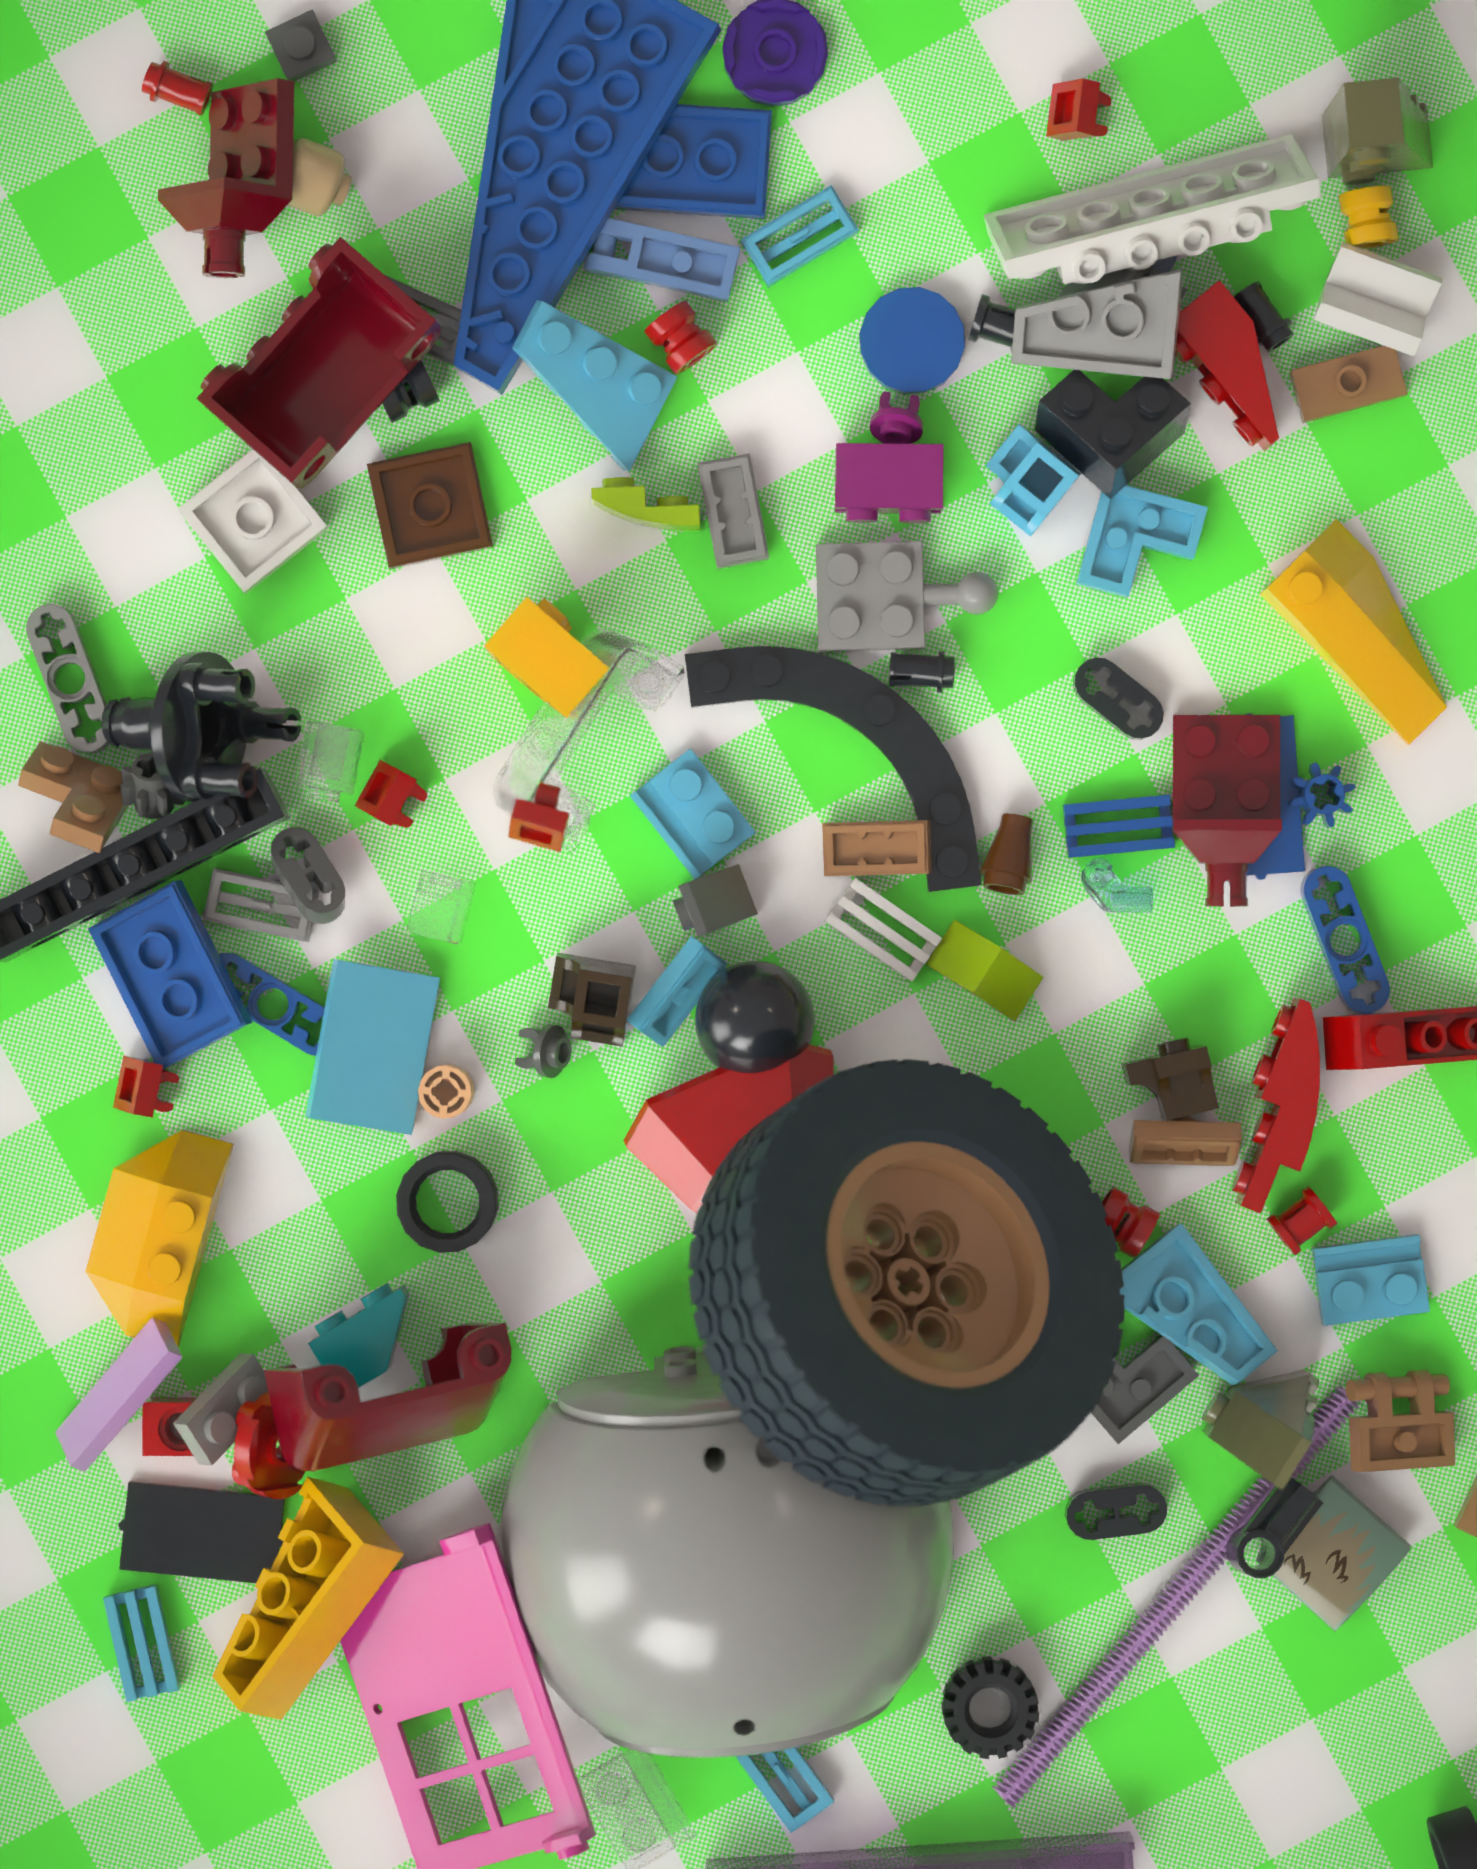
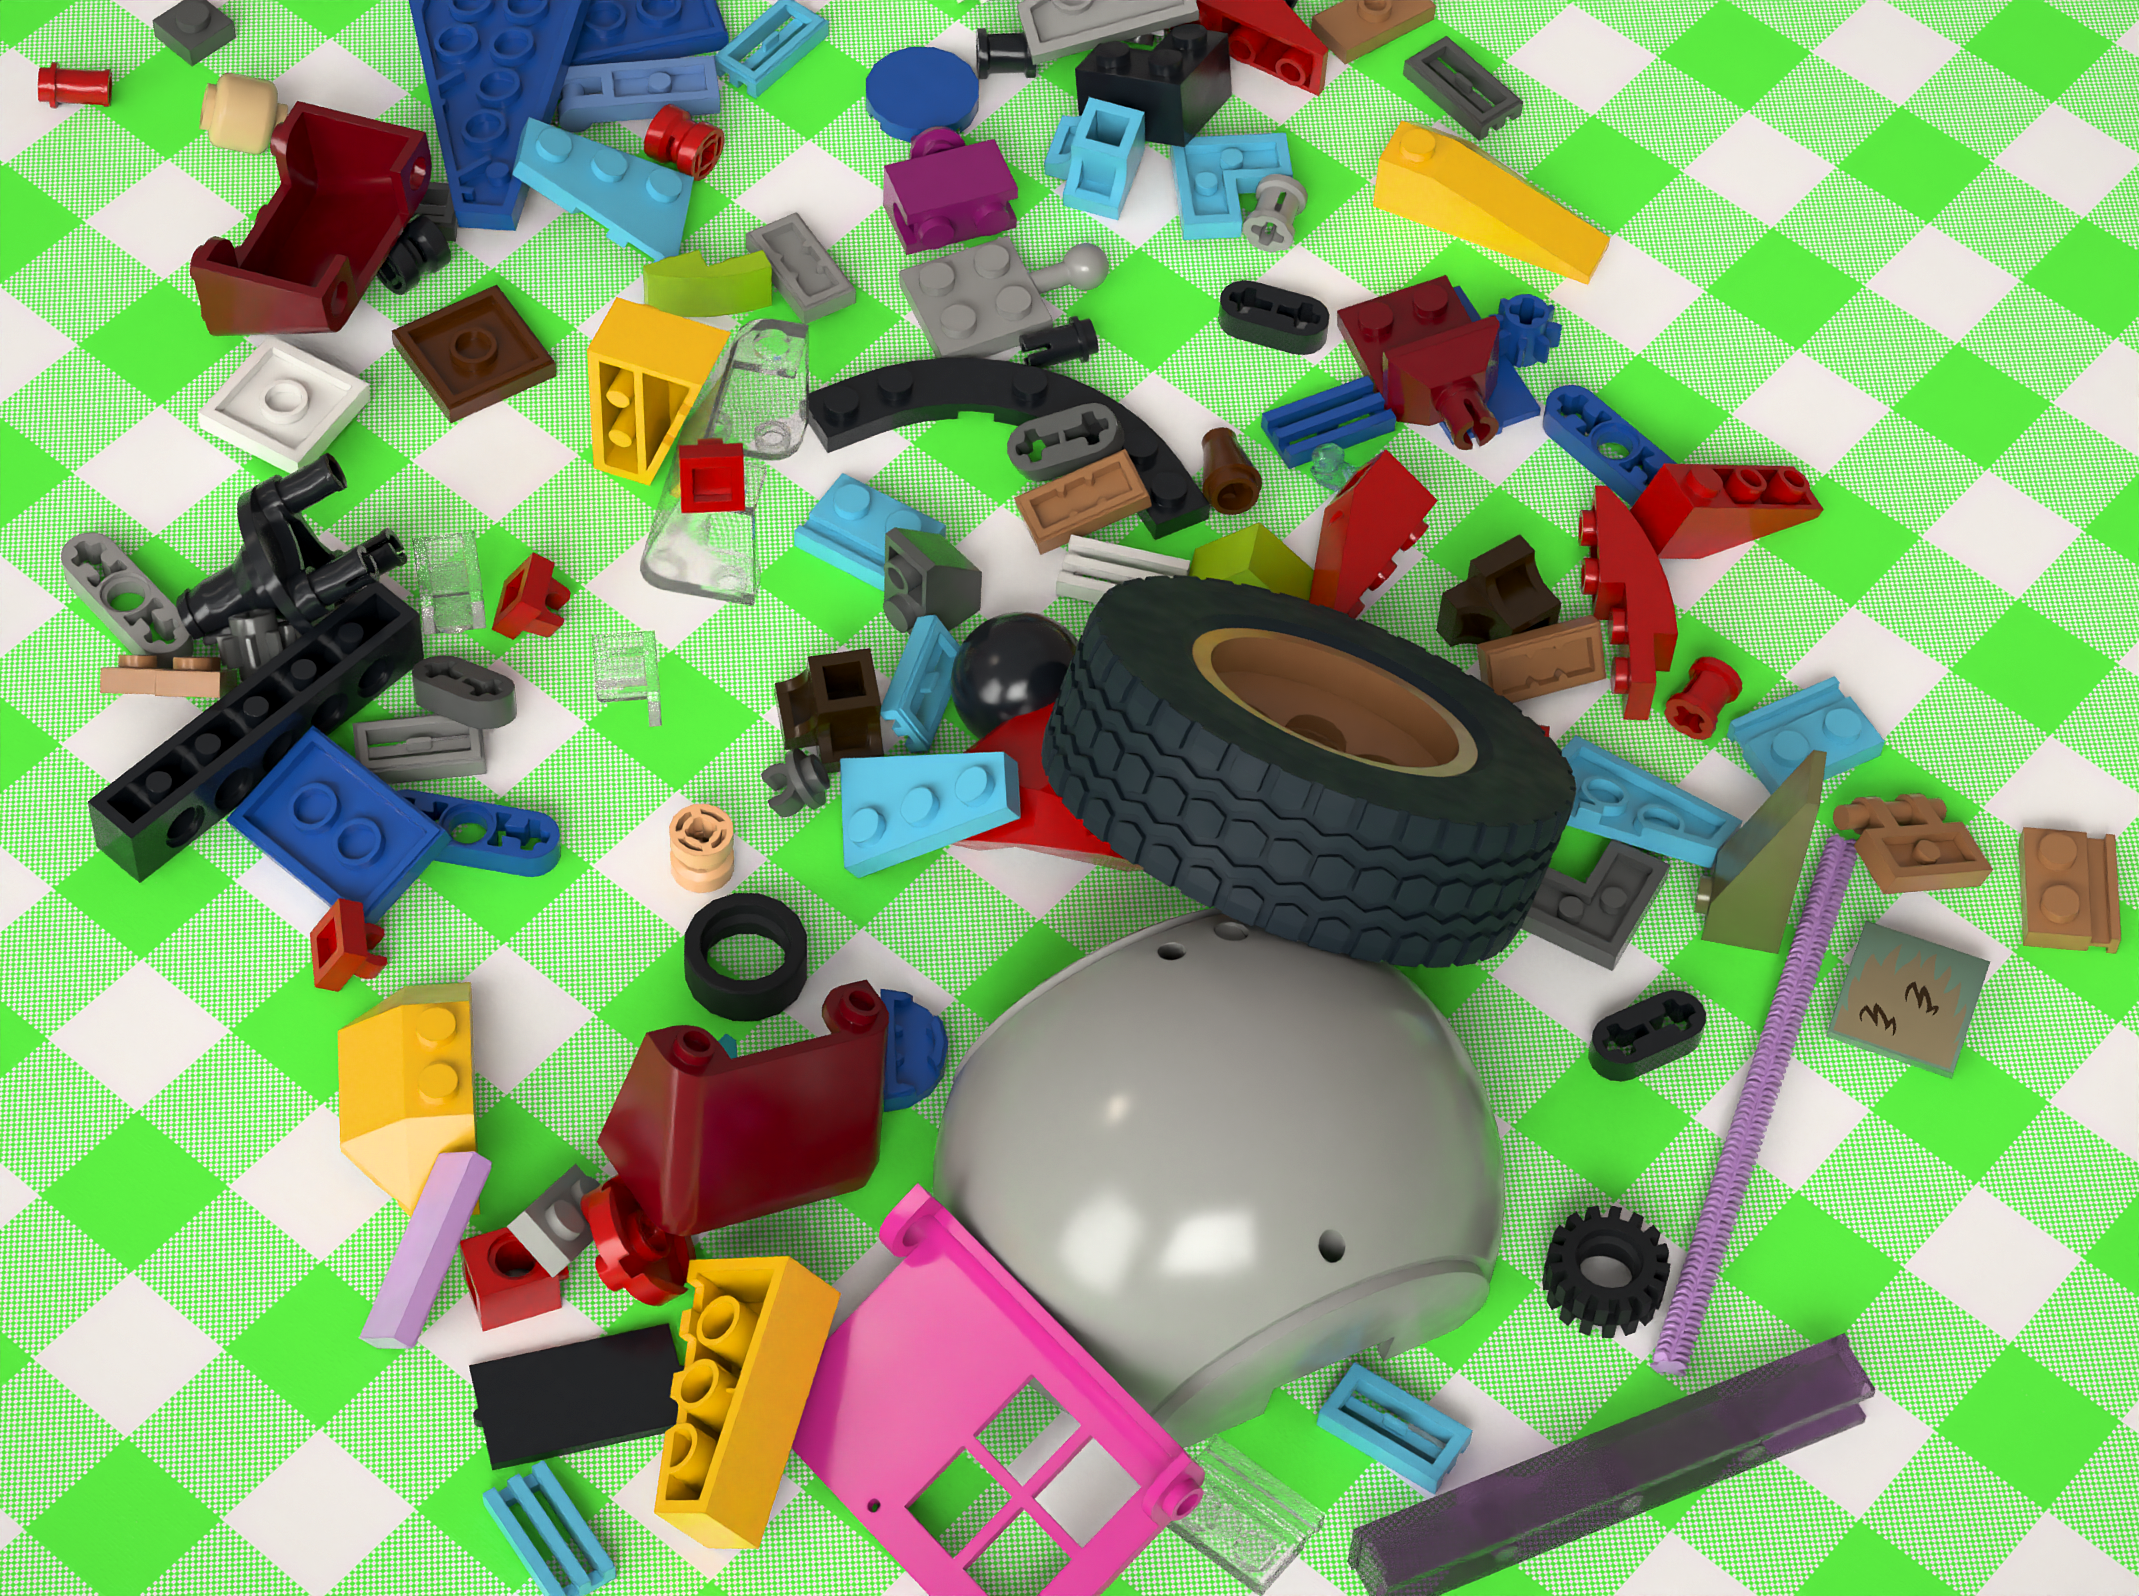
camera: 25 degrees left, 35 degrees down
(246, 170) = (167, 109): dark red plate -> none
(372, 1047) = (600, 831): medium azure tile -> none
(544, 1329) = (914, 1051): none -> blue plate
(624, 1127) = (921, 803): none -> medium azure wing
(881, 797) = (1064, 441): none -> dark grey beam
(1090, 971) = (1363, 530): none -> red slope
(1163, 590) = (1279, 214): none -> light grey bush
(1278, 1524) = (1828, 972): black piece -> none
(1374, 499) = (1455, 92): none -> dark grey tile

